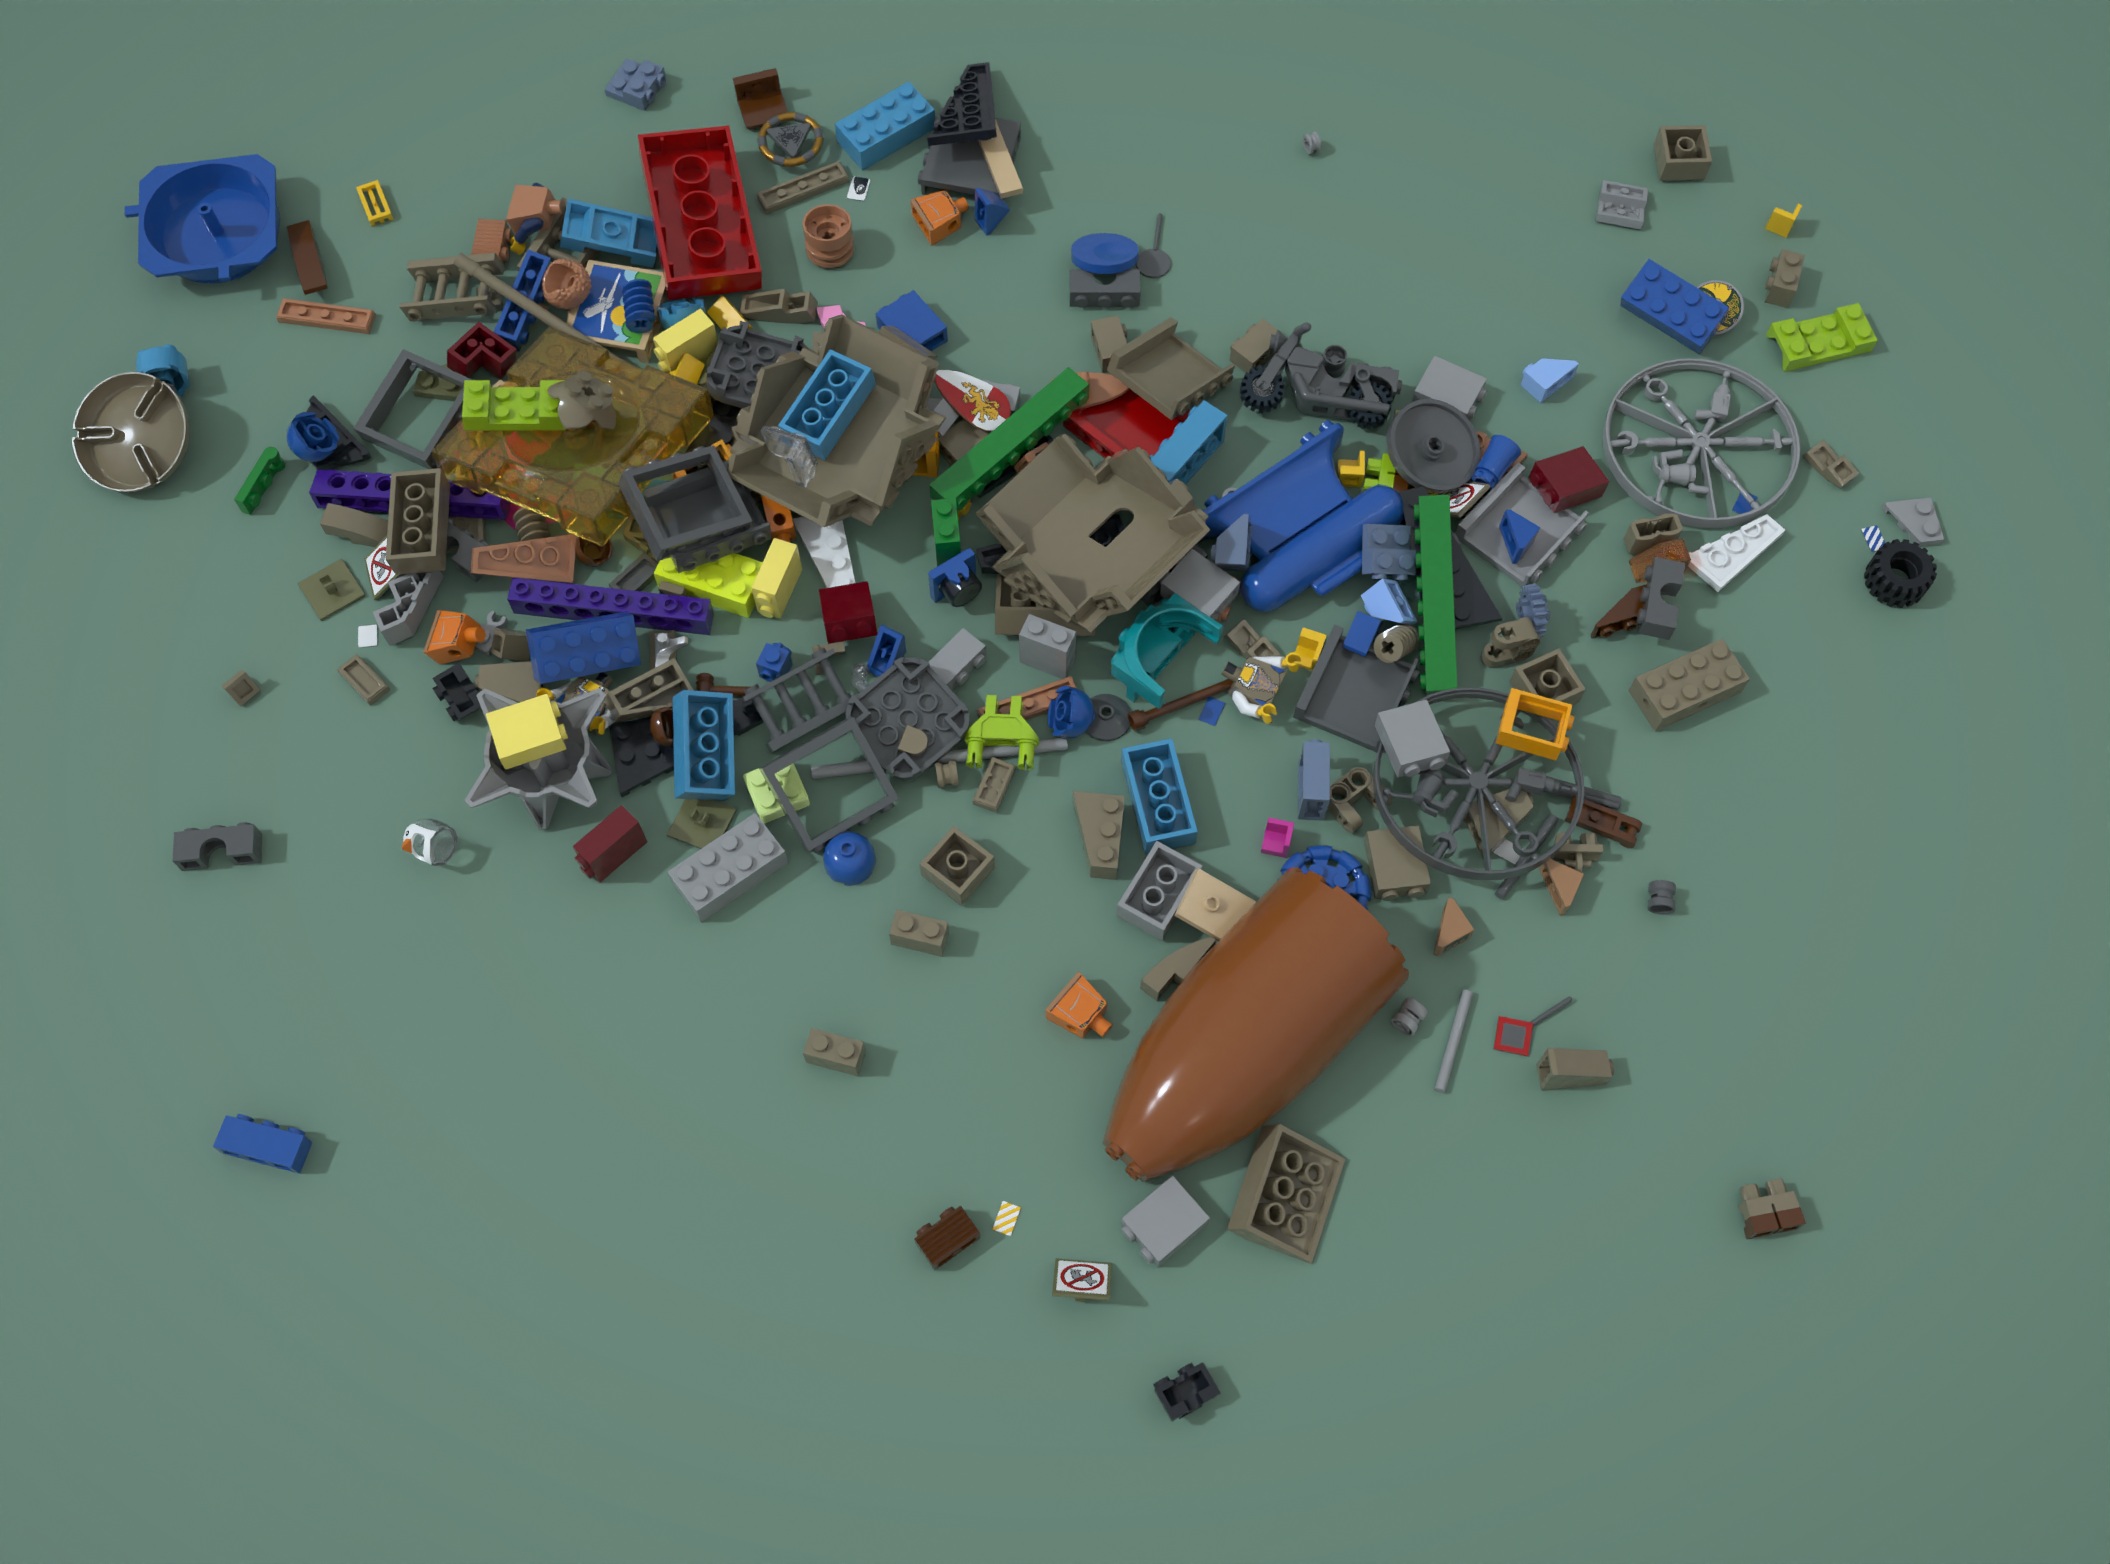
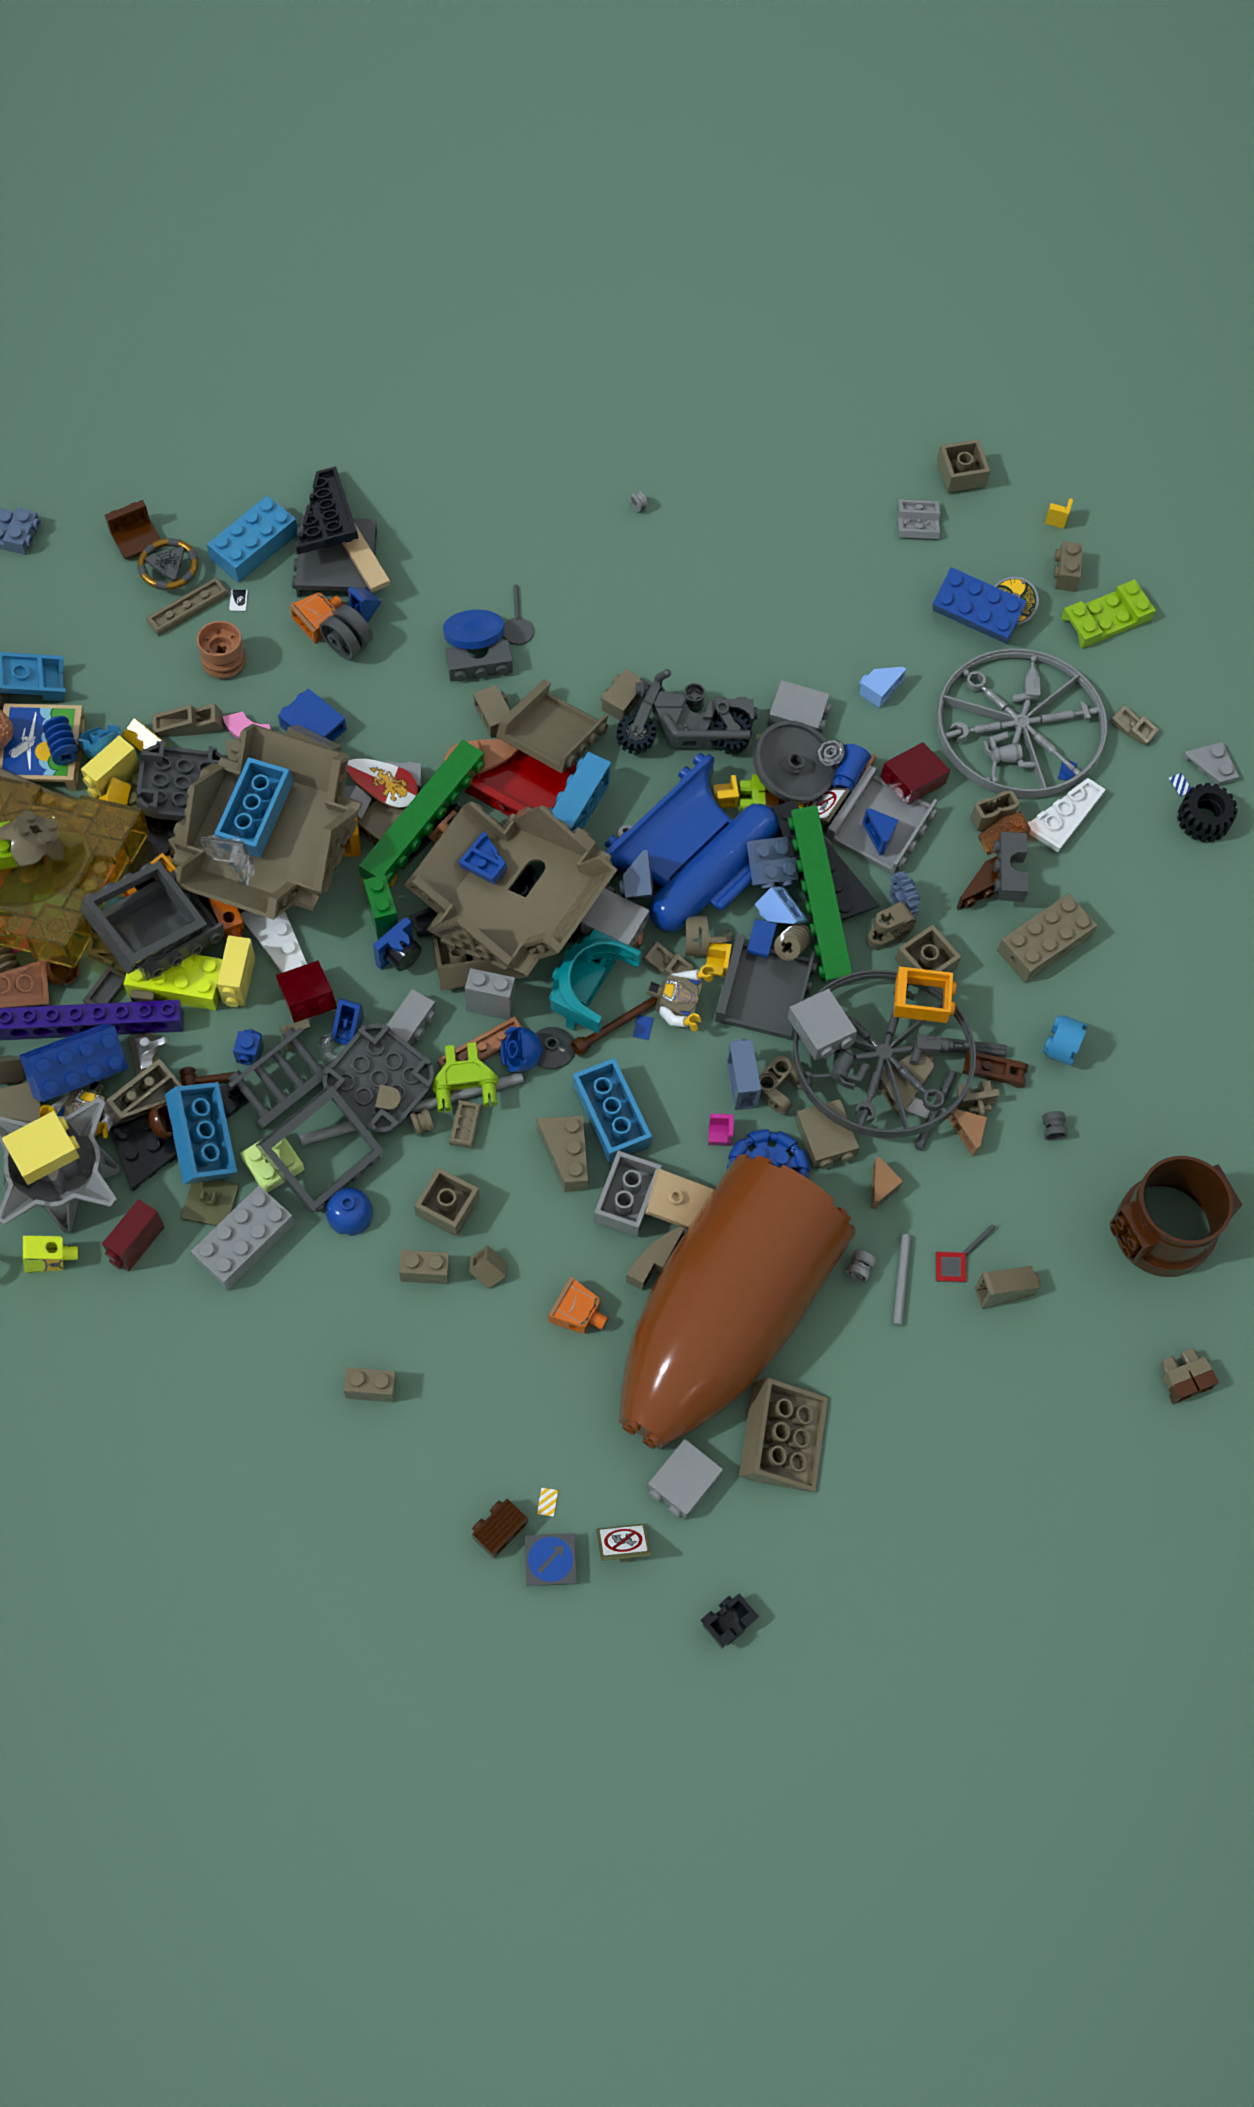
camera: 15 degrees left, 0 degrees up
(513, 848) = (46, 1253): none -> neon yellow torso
(699, 212) = (98, 645): red plate -> none
(965, 236) = (346, 631): none -> dark grey wheel
(989, 945) = (488, 1266): none -> dark tan panel
(997, 1283) = (550, 1559): none -> piece
(1067, 500) = (483, 860): none -> blue wing
(1284, 614) = (692, 931): none -> dark tan helmet
(1476, 435) = (828, 748): none -> light grey plate
(1691, 802) = (1066, 1039): none -> dark azure brick
(1753, 1055) = (1150, 1246): none -> reddish brown cylinder

